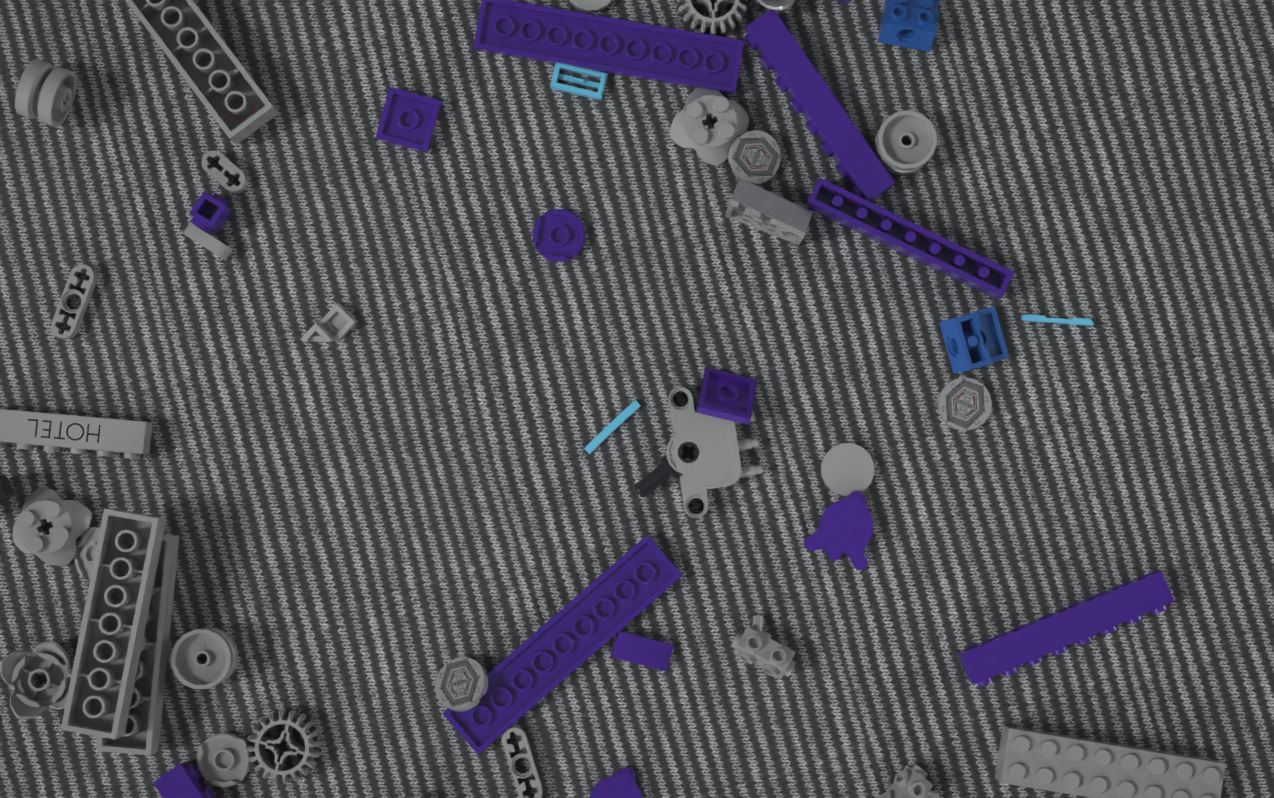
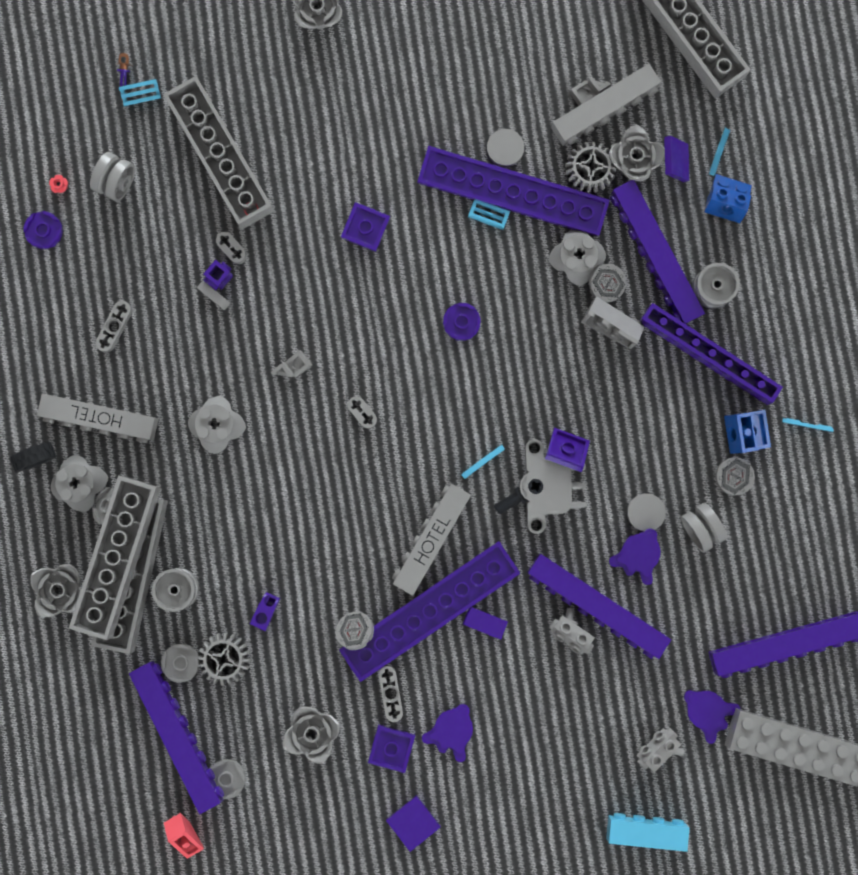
camera: 10 degrees right, 0 degrees up
(253, 423) = (230, 425): none -> light grey brick
(333, 673) = (265, 611): none -> dark purple leg
(431, 384) = (358, 415): none -> light grey beam
(553, 543) = (431, 539): none -> light grey brick
(797, 608) = (602, 608): none -> dark purple brick
(929, 480) = (704, 527): none -> light grey wheel
(967, 736) = (708, 712): none -> dark purple tile

